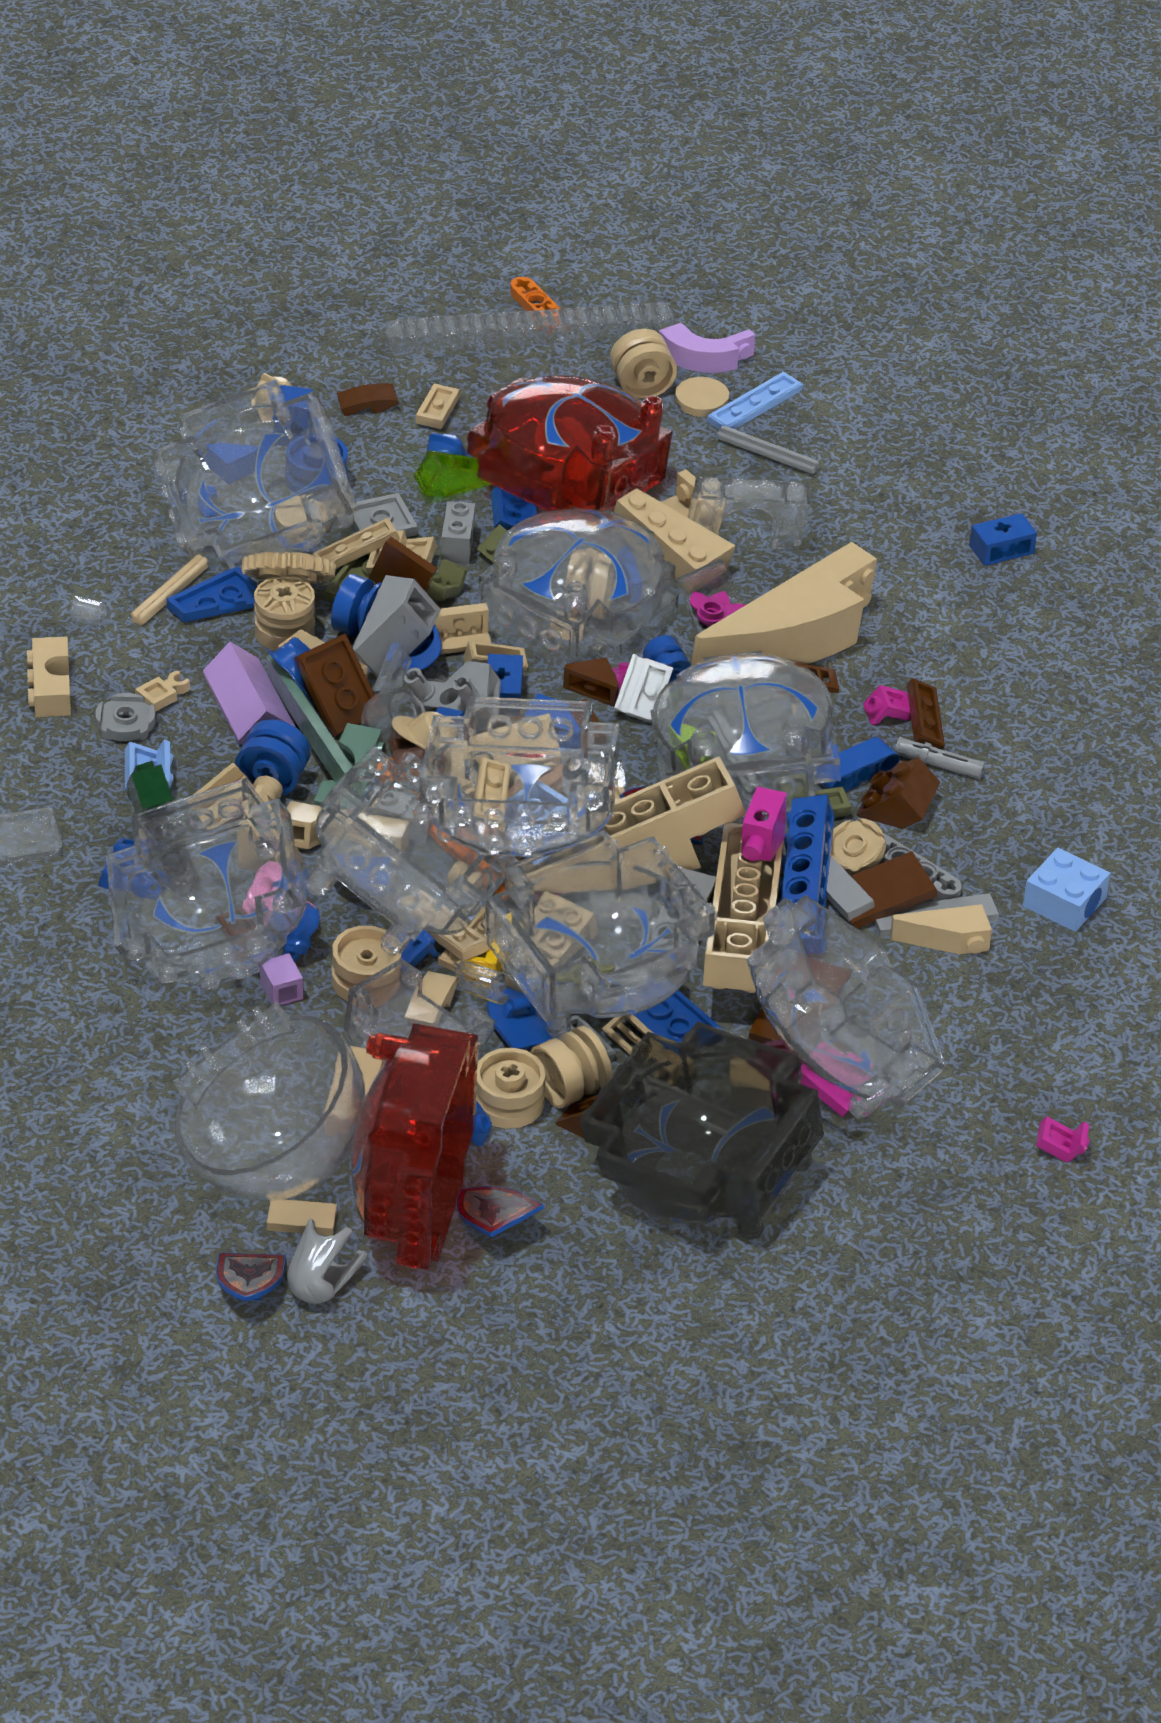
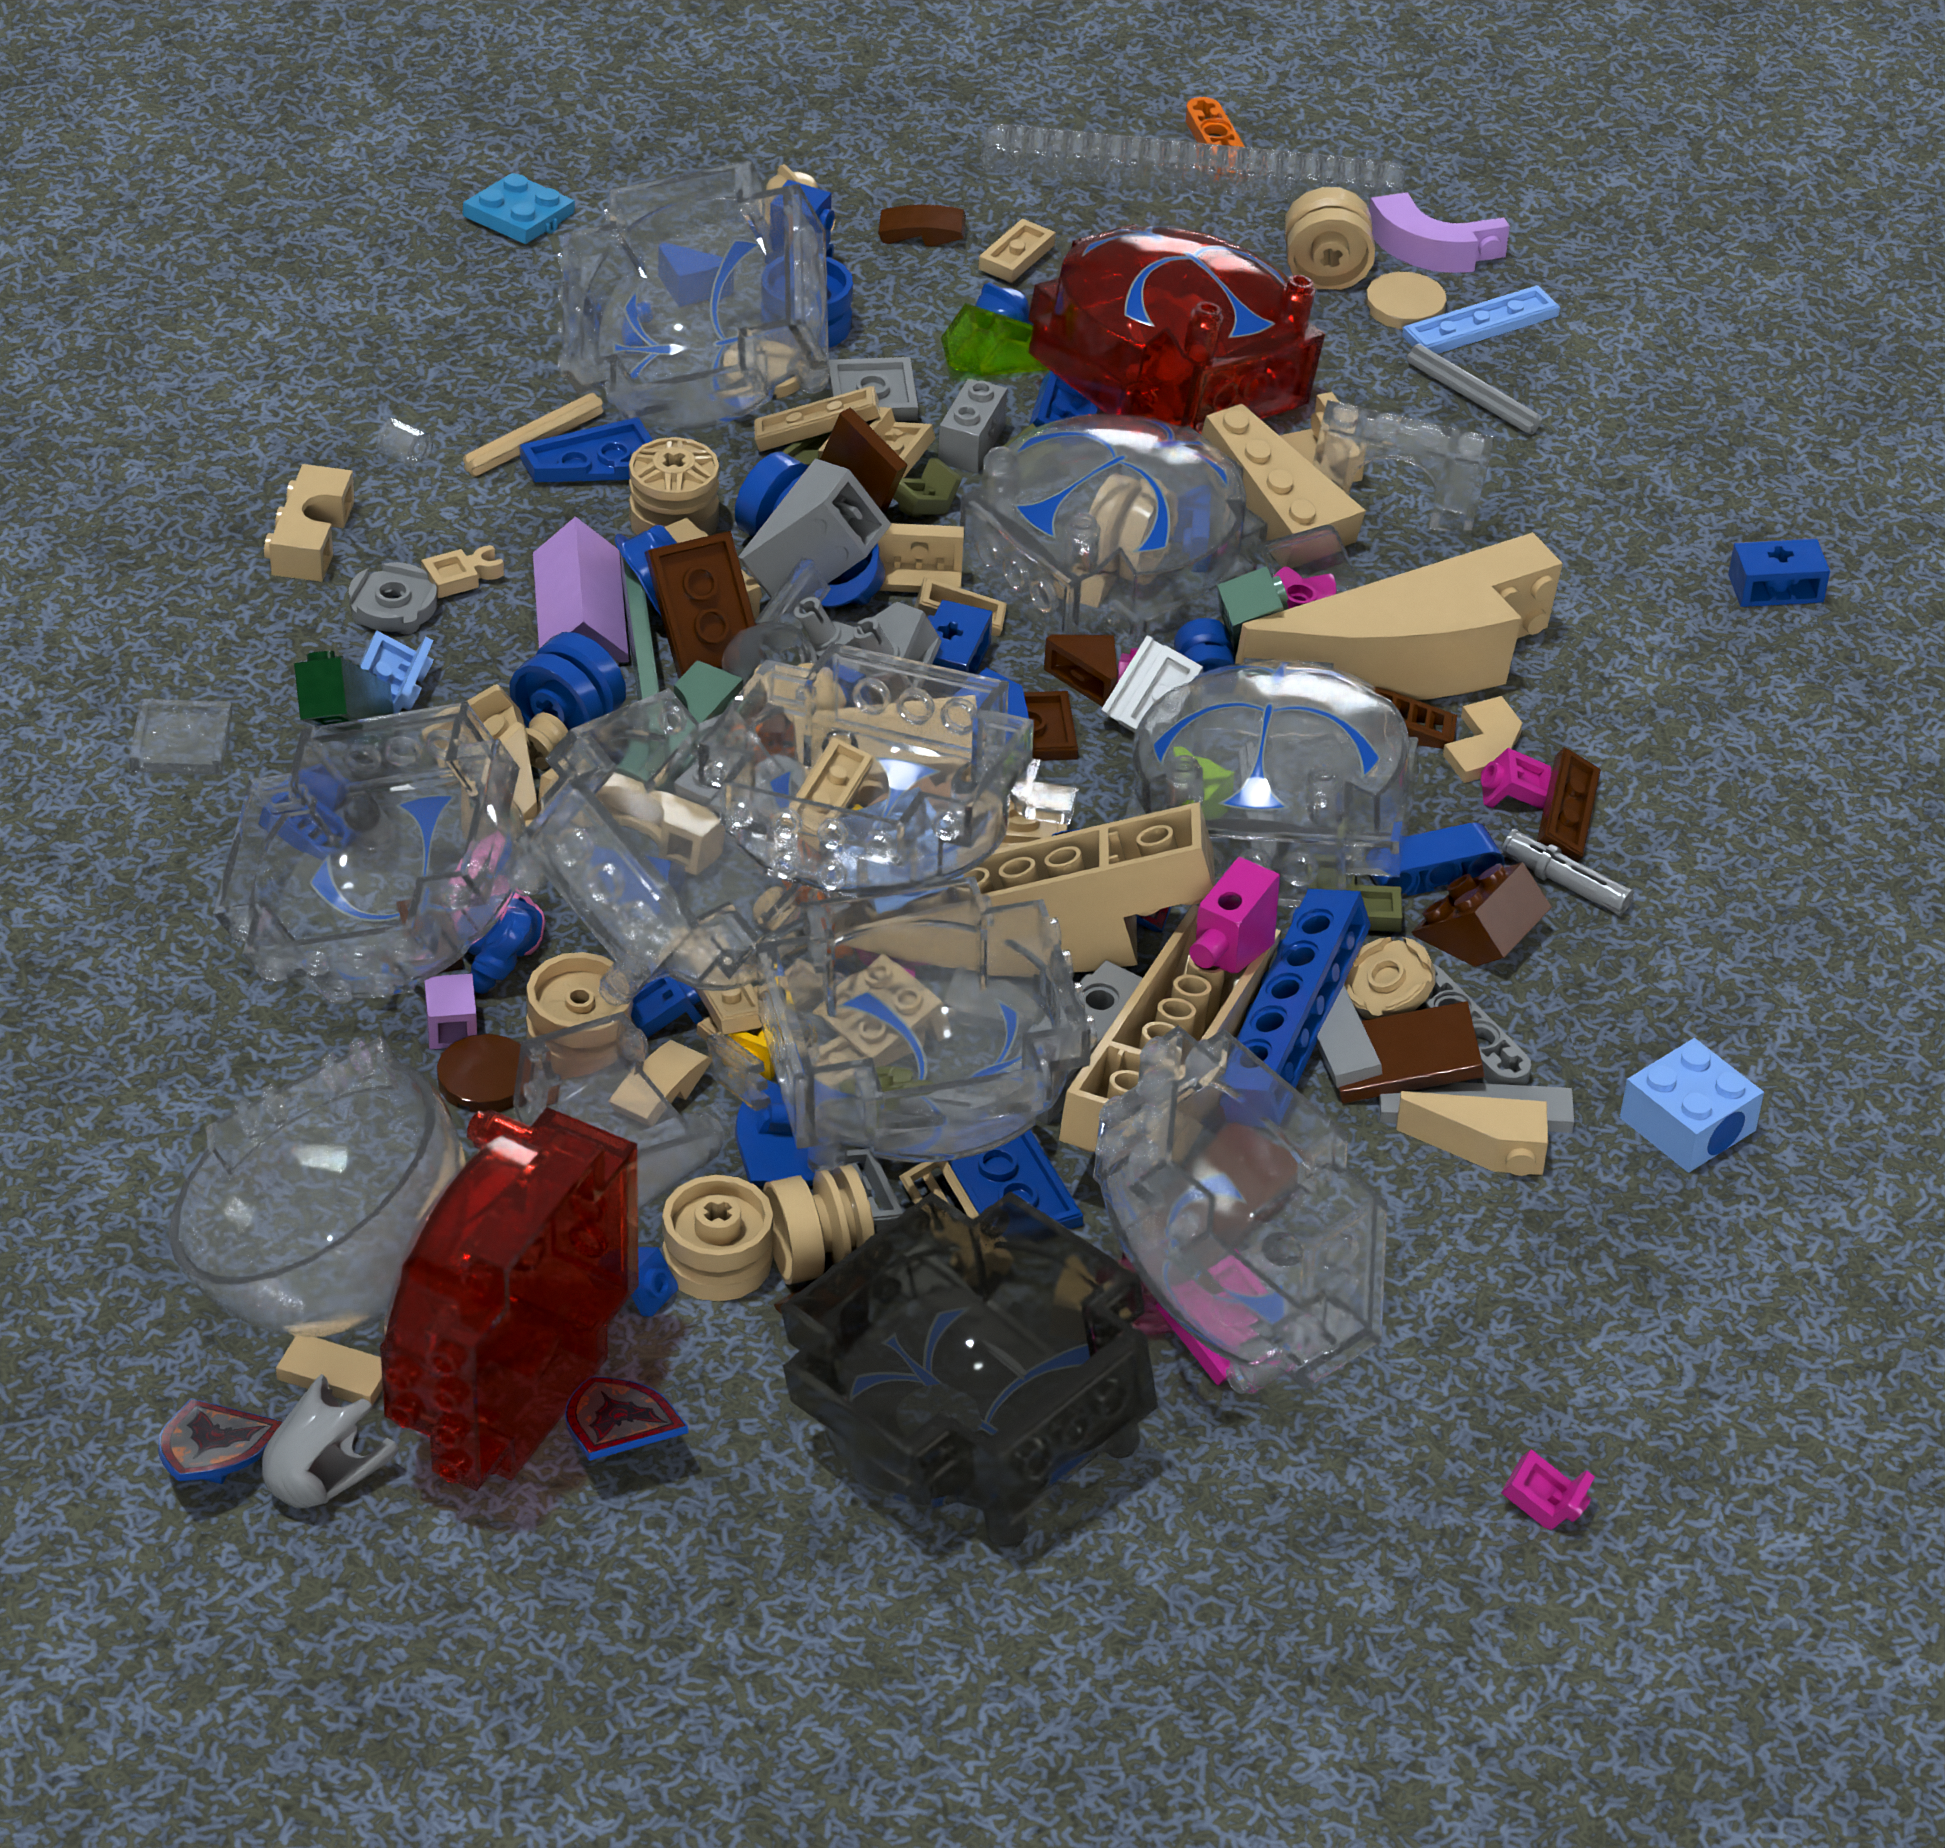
camera: 15 degrees right, 0 degrees up
(93, 433) = (519, 208): none -> dark azure plate
(288, 564) = (706, 425): tan gear -> none
(321, 1005) = (479, 1072): none -> reddish brown tile
(691, 621) = (1250, 598): none -> sand green brick
(862, 678) = (1494, 729): none -> tan tile

